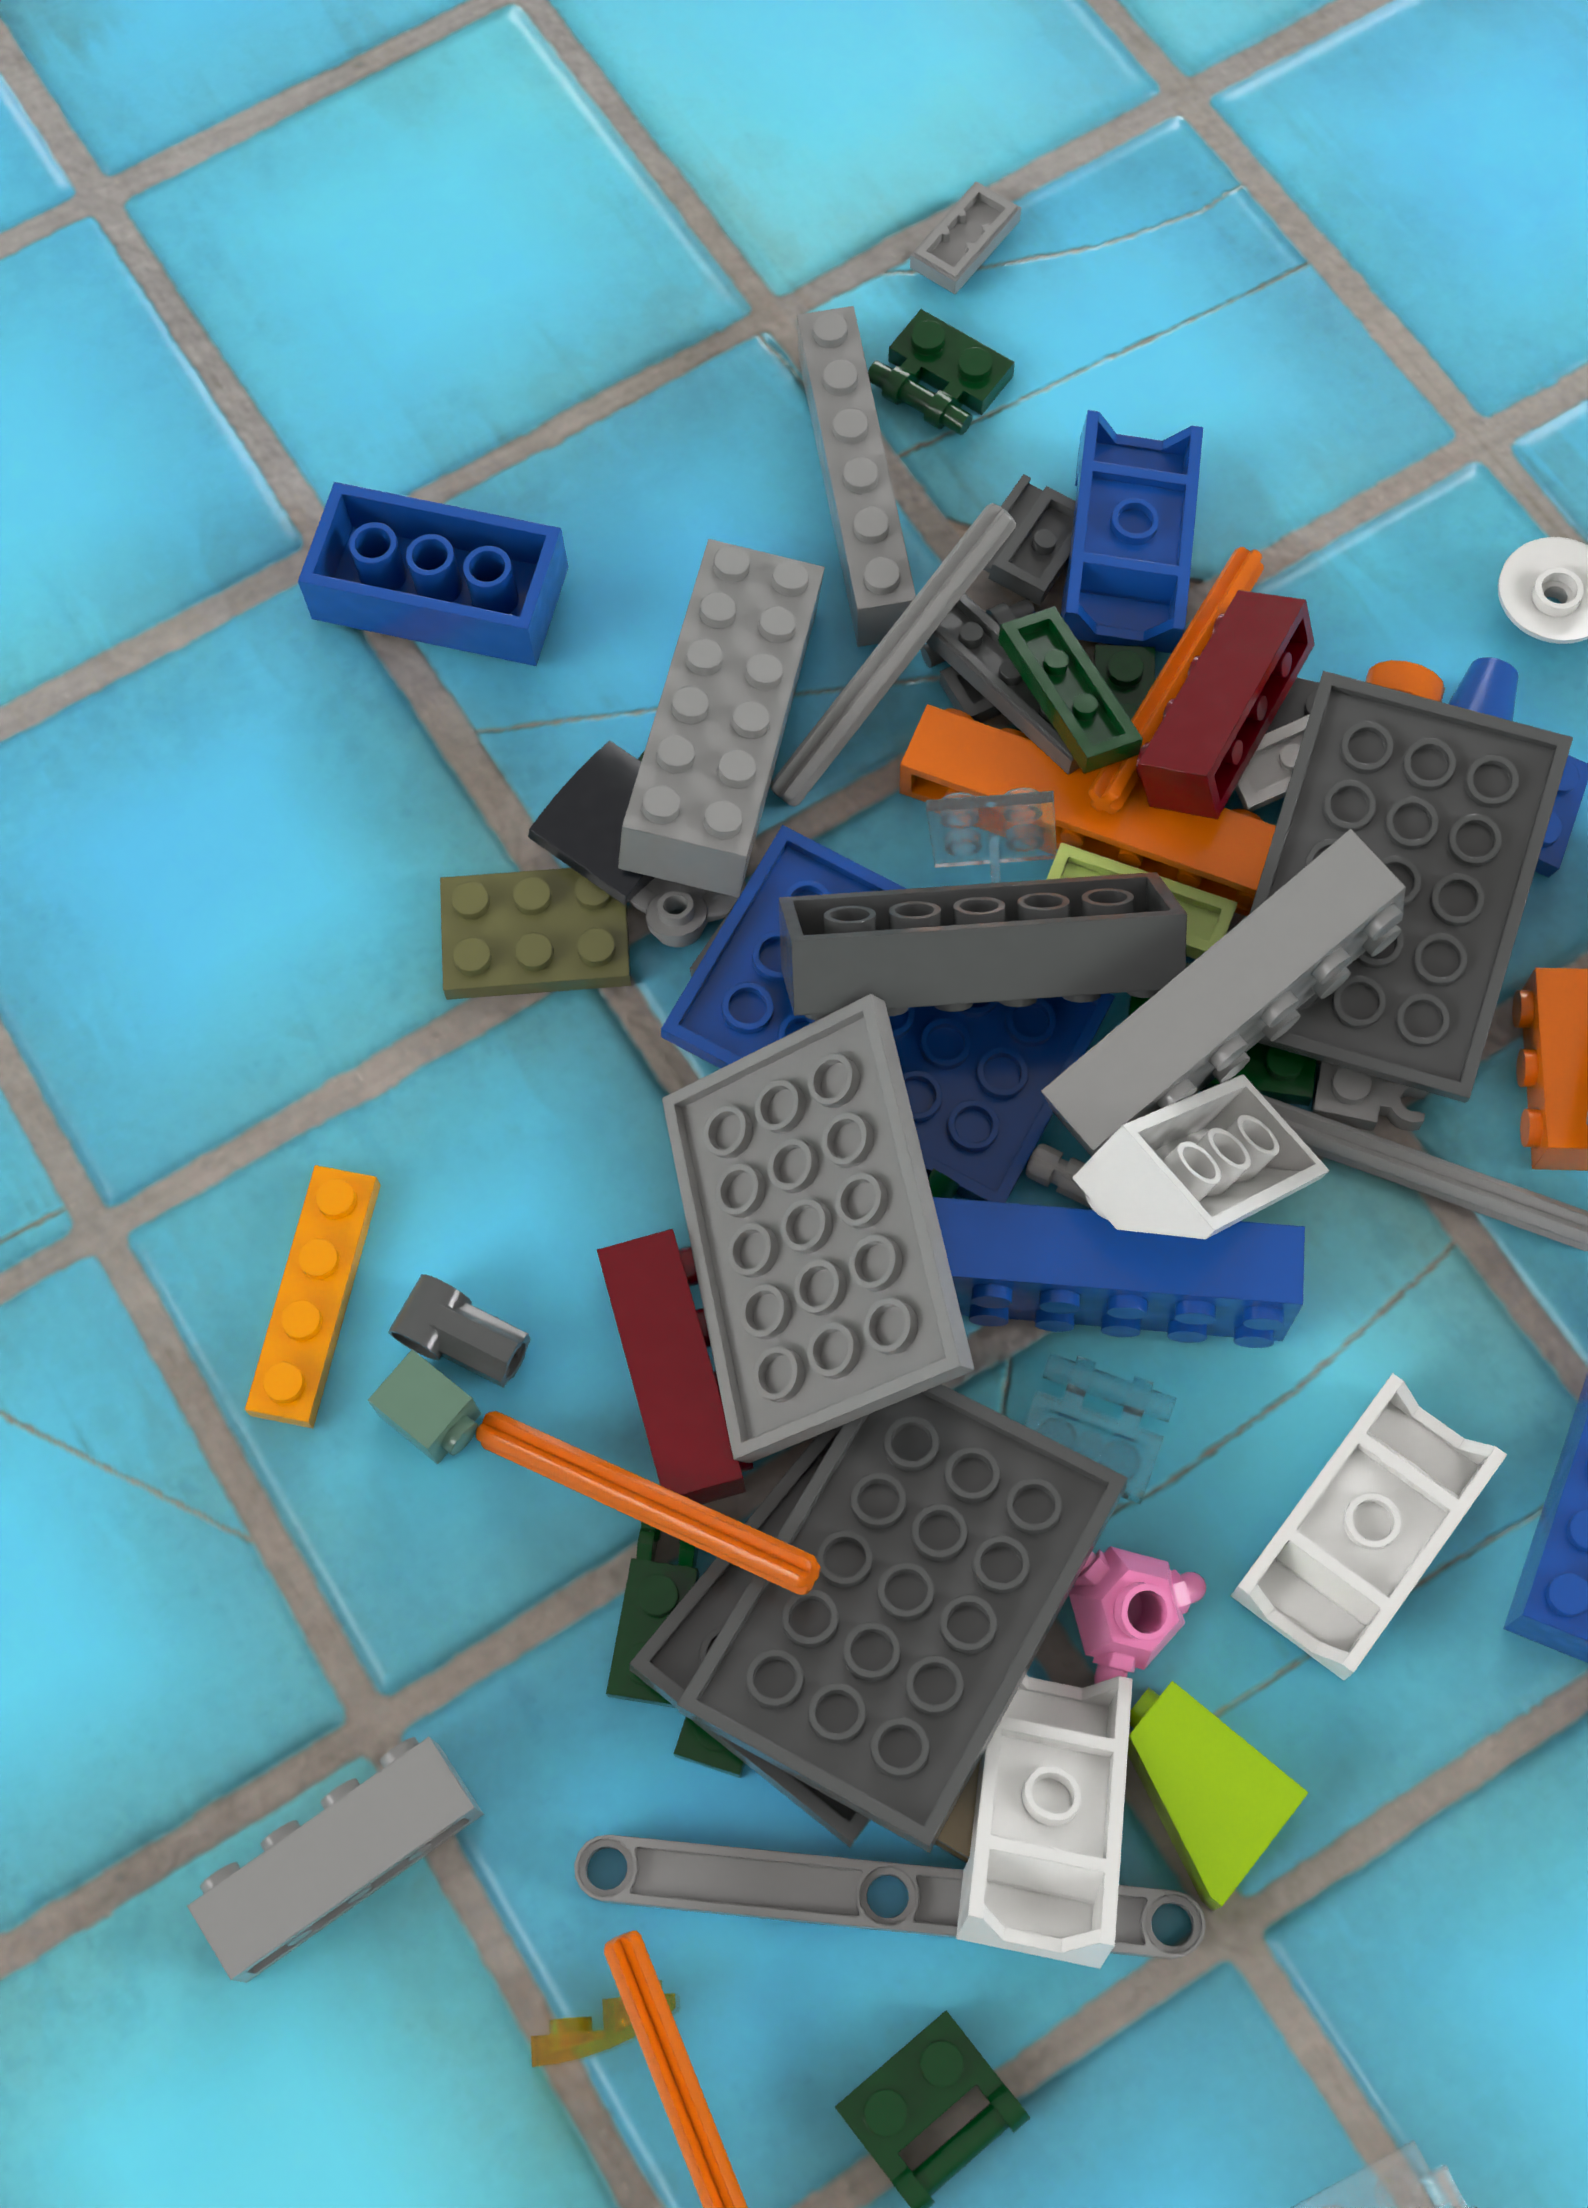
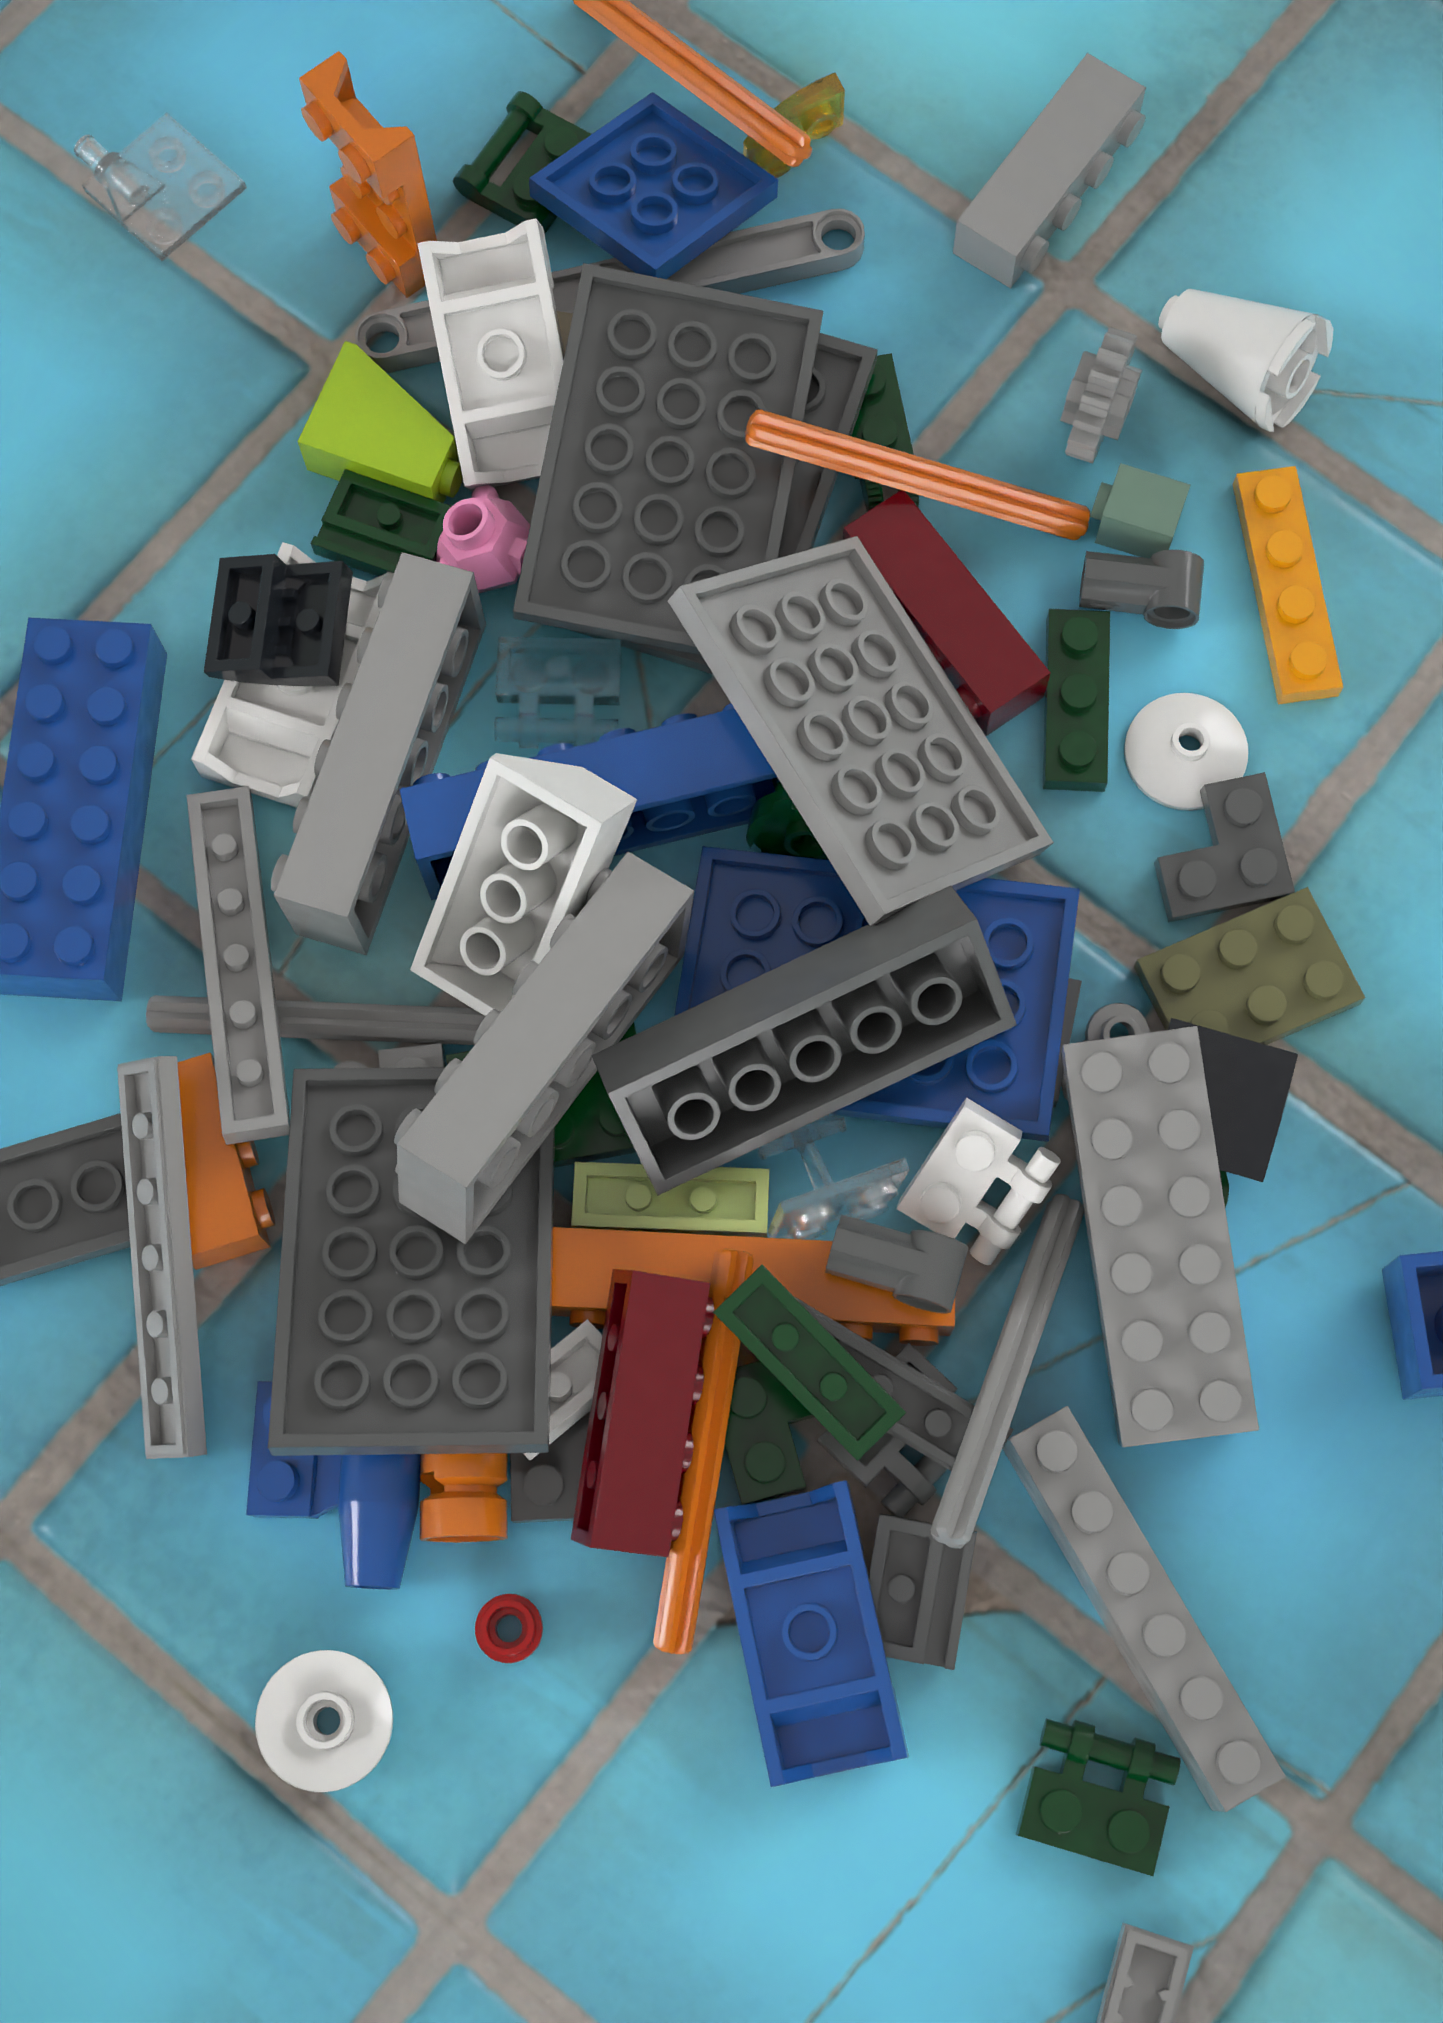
camera: 160 degrees right, 5 degrees up
(236, 1545) = (1248, 351): none -> white cone
(412, 1530) = (1101, 395): none -> light grey gear
(491, 1032) = (1242, 865): none -> dark grey plate
(494, 1193) = (1168, 770): none -> white dish
(567, 1257) = (1076, 700): none -> dark green plate
(800, 1994) = (653, 188): none -> blue plate
(868, 827) = (961, 1170): none -> white plate
(948, 742) = (916, 1266): none -> dark grey piece
(1148, 2071) = (382, 184): none -> orange piece
(1233, 1671) = (376, 522): none -> dark green plate
(1293, 1404) = (384, 741): none -> light grey brick
(1381, 1568) = (278, 621): none -> black slope
(1385, 605) = (493, 1613): none -> red plate
(1500, 1237) = (238, 966): none -> light grey plate

